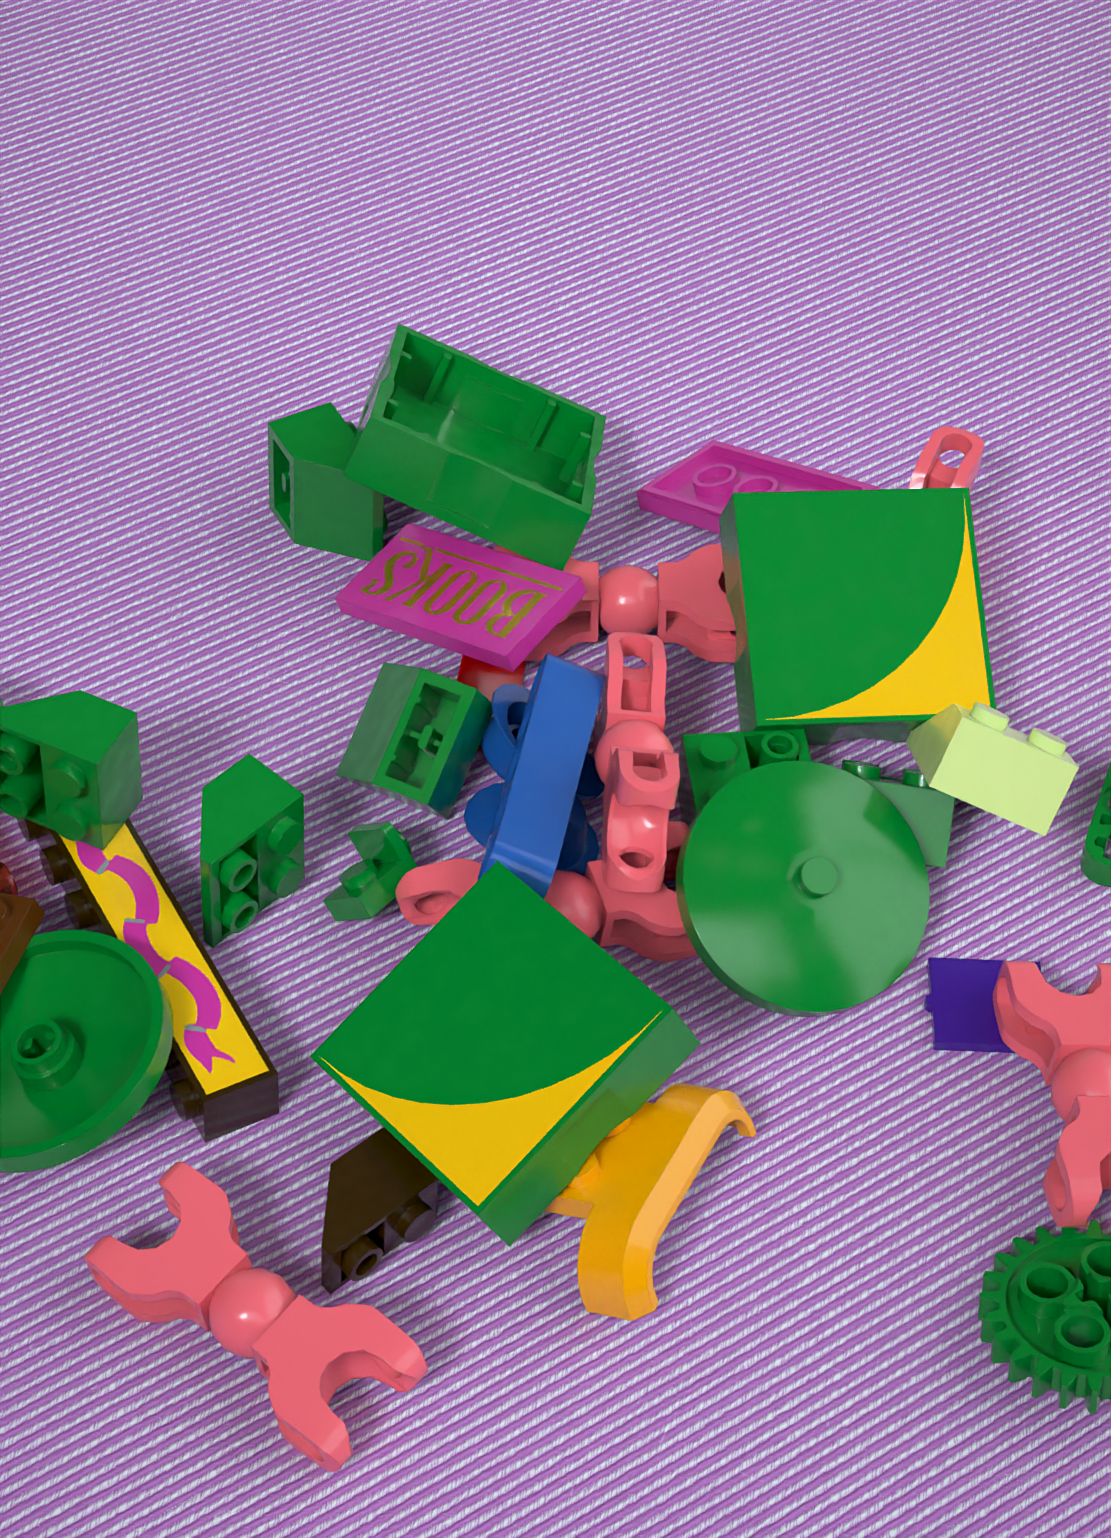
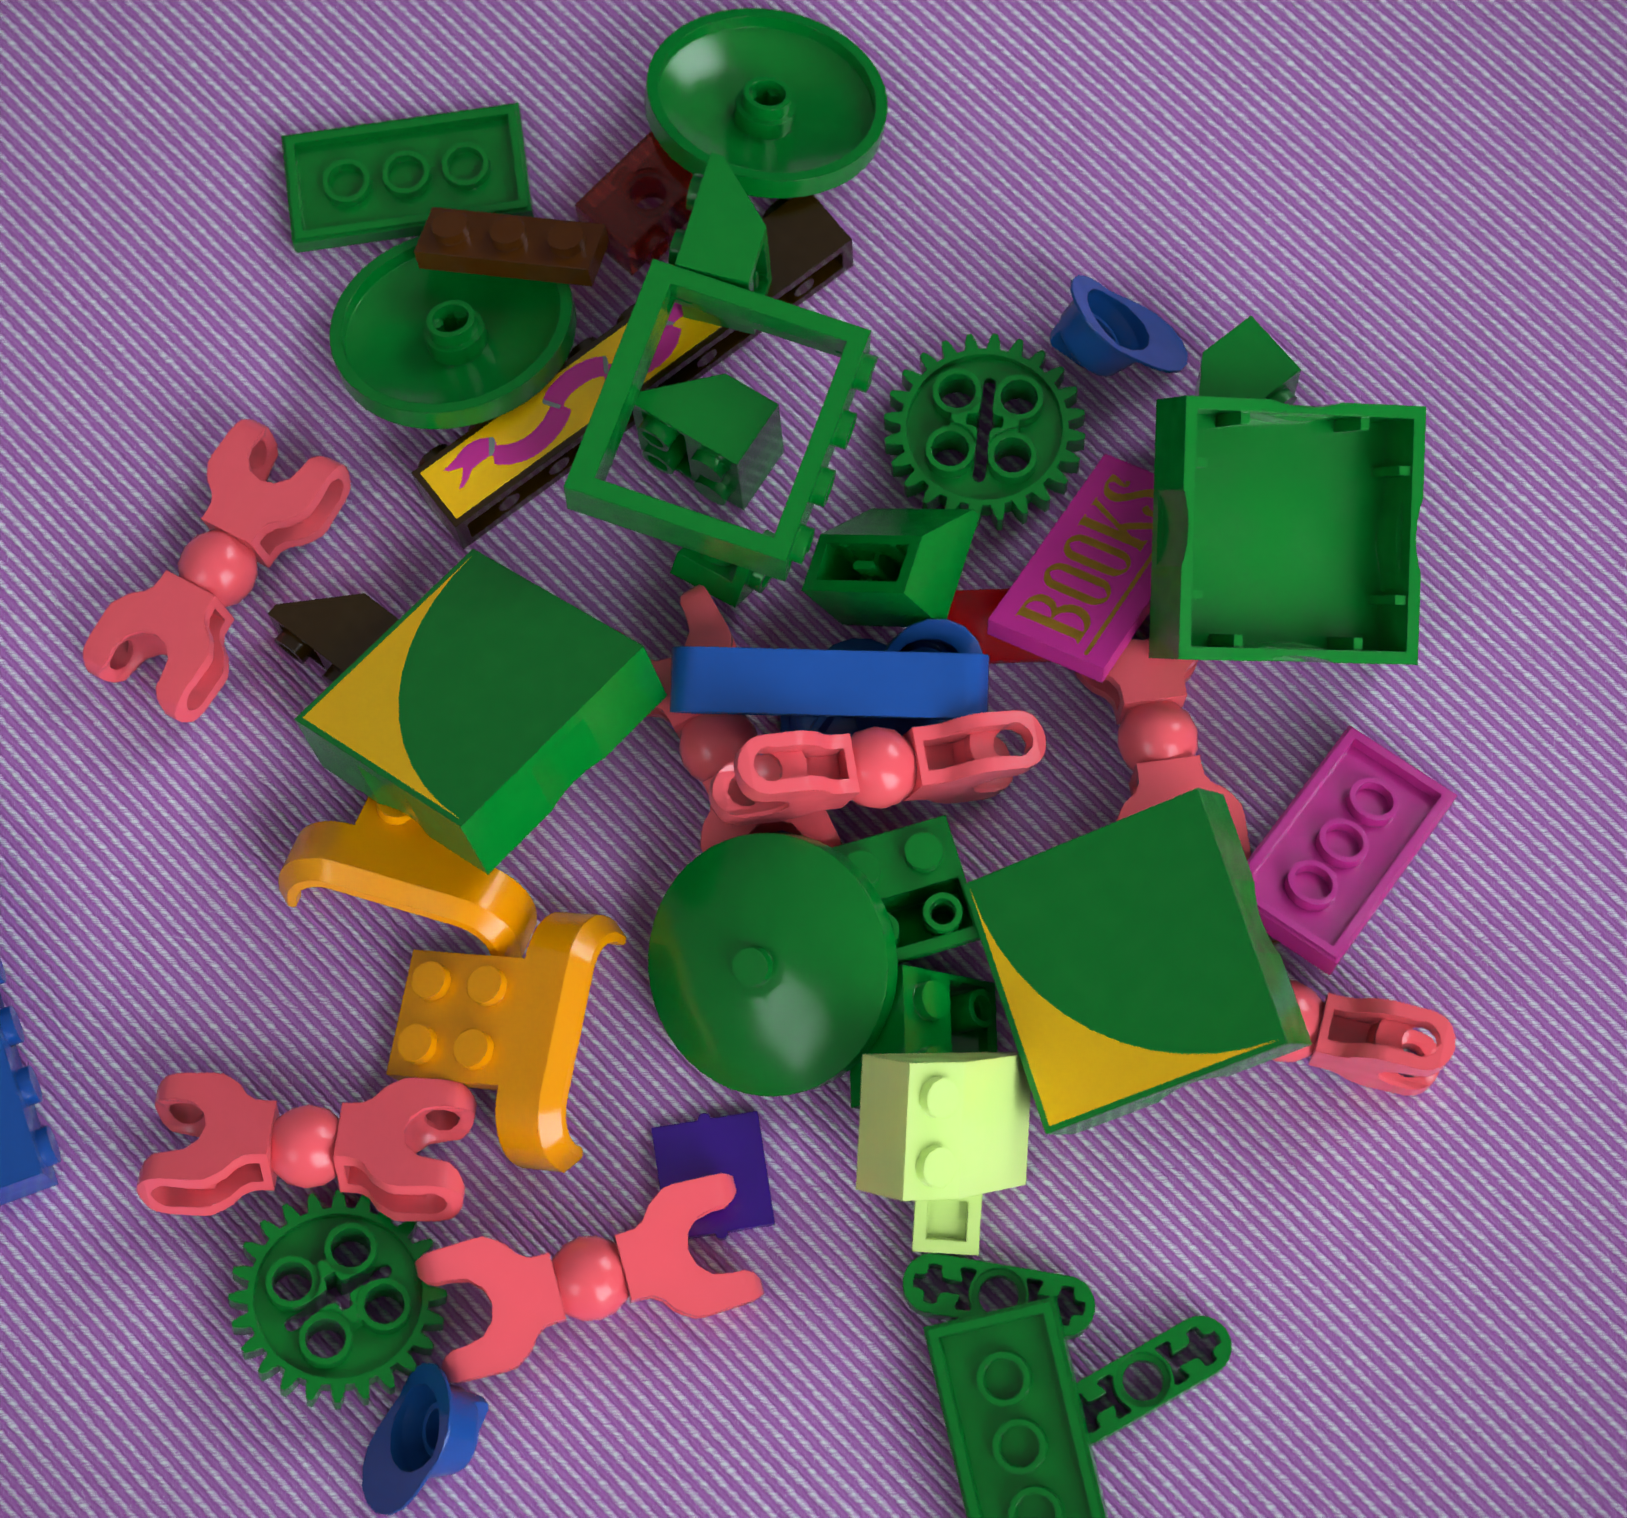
camera: 90 degrees right, 25 degrees up
(222, 567) = (1113, 333): none -> blue piece
(225, 853) = (586, 482): none -> green window
(286, 671) = (1040, 437): none -> green gear
(827, 1124) = (508, 1030): none -> light orange piece
(924, 1353) = (249, 1144): none -> coral piece
(1064, 838) = (947, 1226): none -> yellowish green plate

